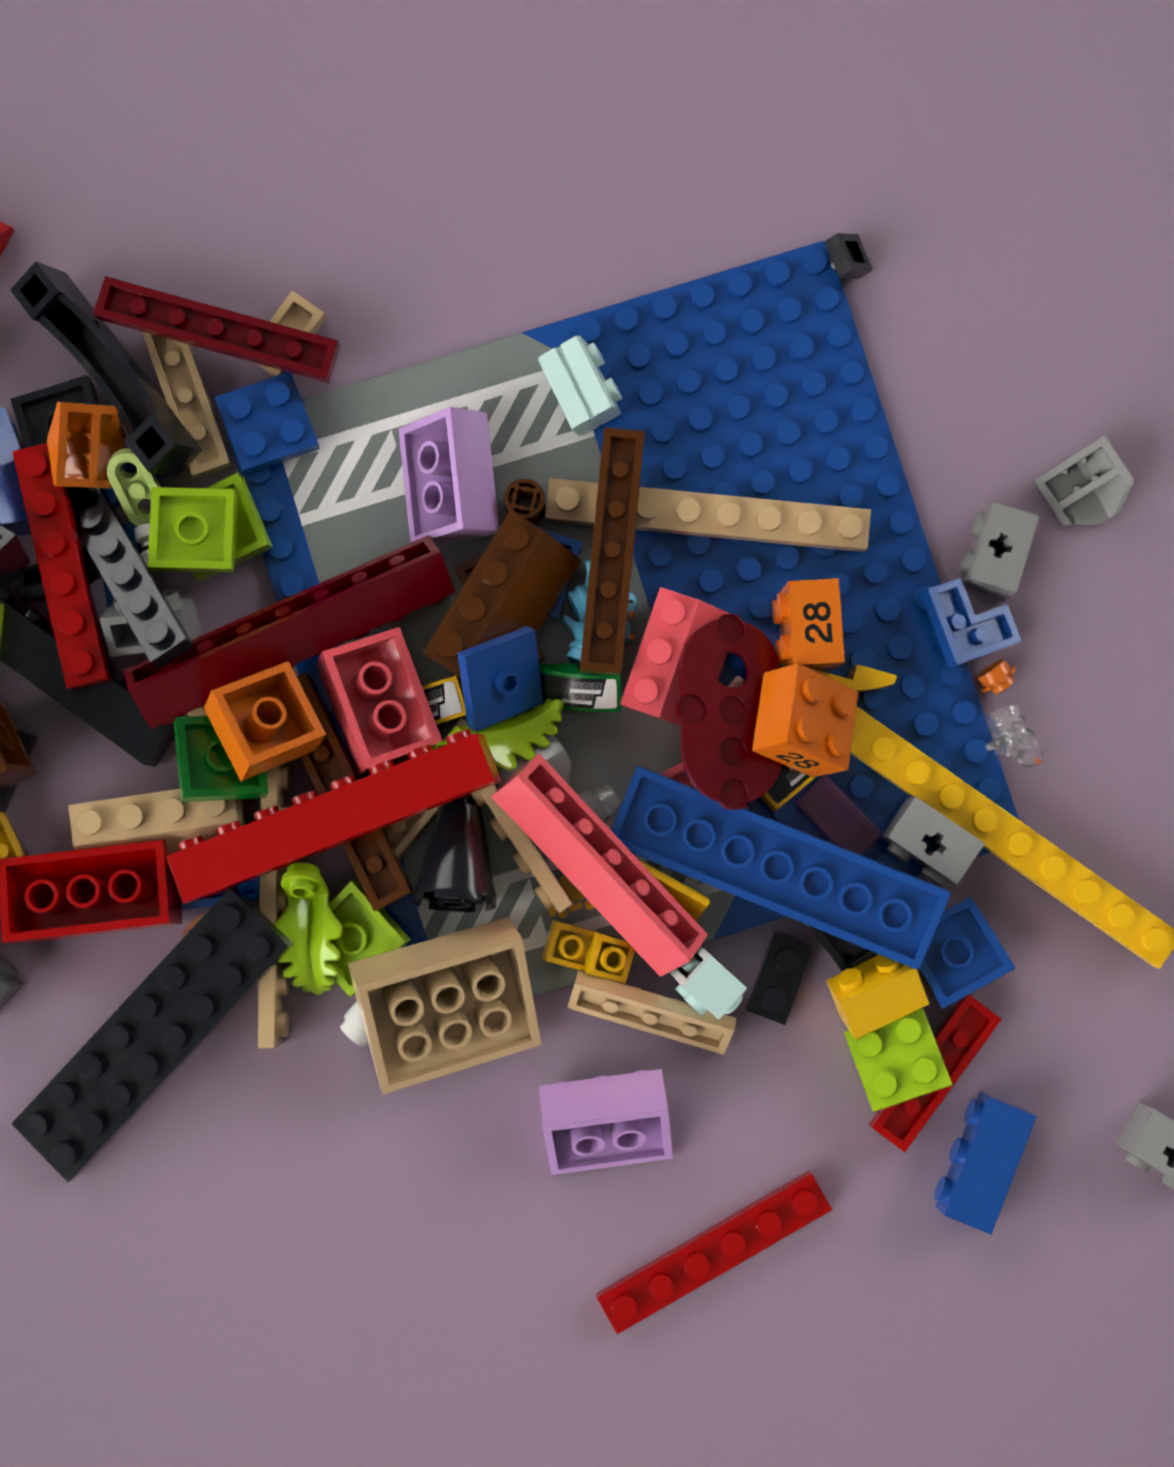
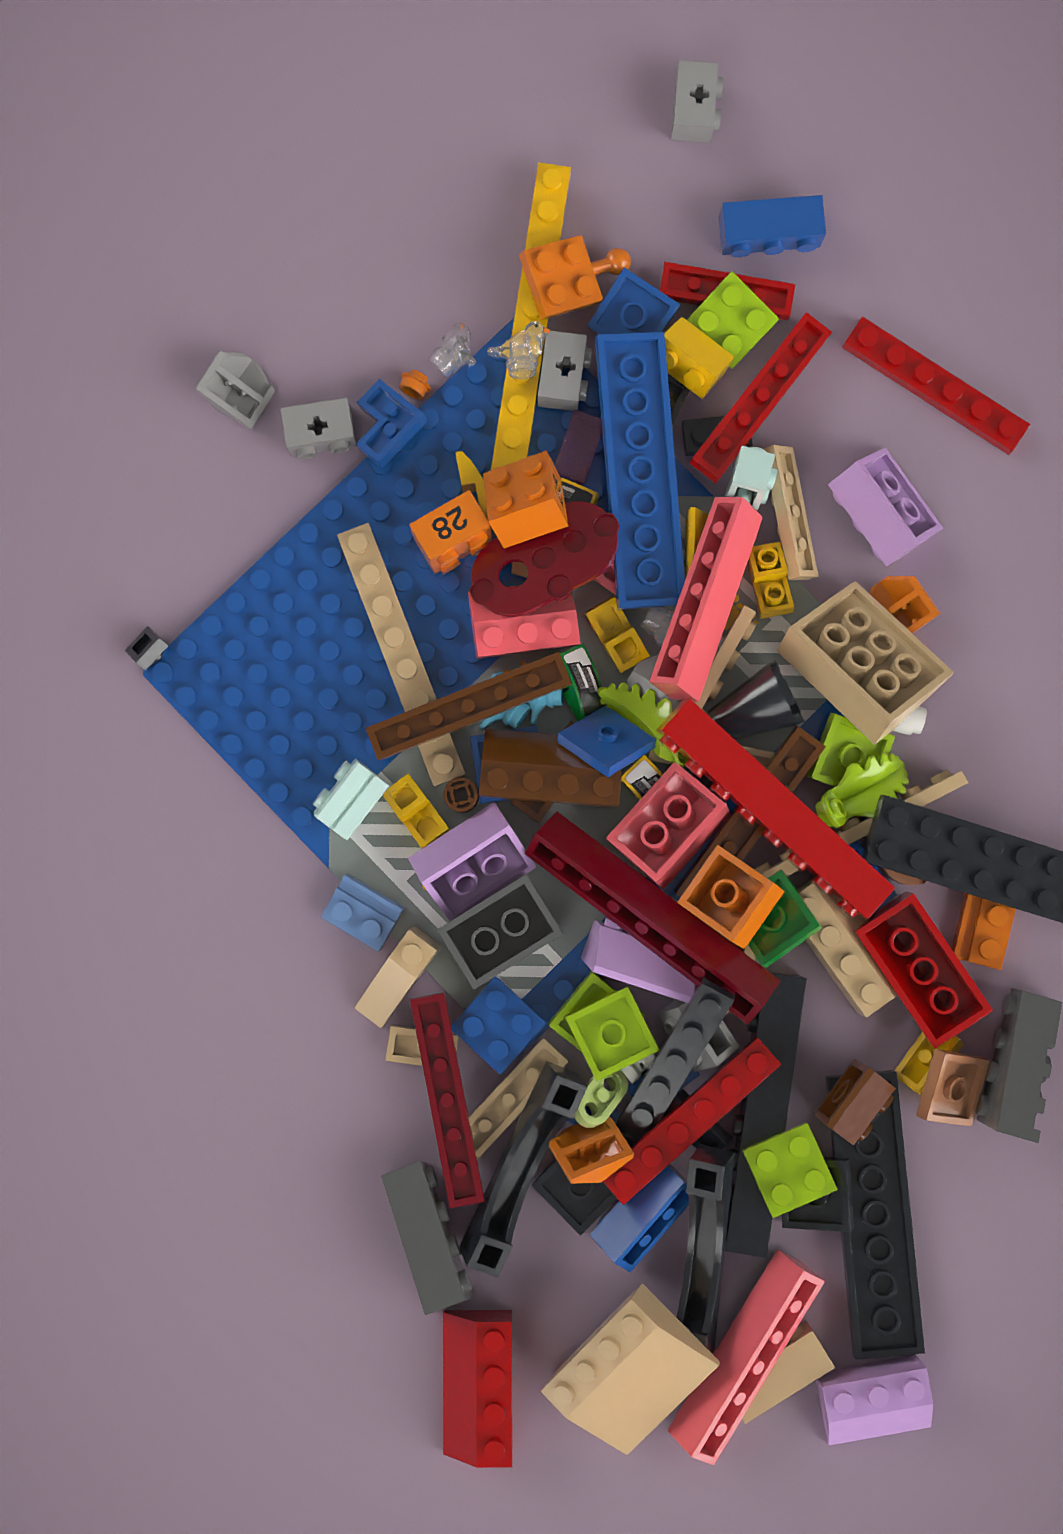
camera: 115 degrees left, 0 degrees up
(87, 241) = (427, 1237): none -> dark grey wedge
(94, 981) = (983, 932): none -> orange plate
(258, 577) = (623, 958): none -> lavender slope
(359, 469) = (500, 931): none -> dark grey brick
(372, 348) = (397, 976): none -> tan slope
(456, 343) = (362, 912): none -> medium blue plate
(490, 1086) = (905, 601): none -> orange slope
(532, 449) = (415, 811): none -> yellow slope
(613, 754) = (616, 634): none -> yellow slope
(795, 1045) = (760, 397): none -> red plate
(974, 805) = (522, 350): none -> clear animal
(1037, 896) = (564, 276): none -> orange plate

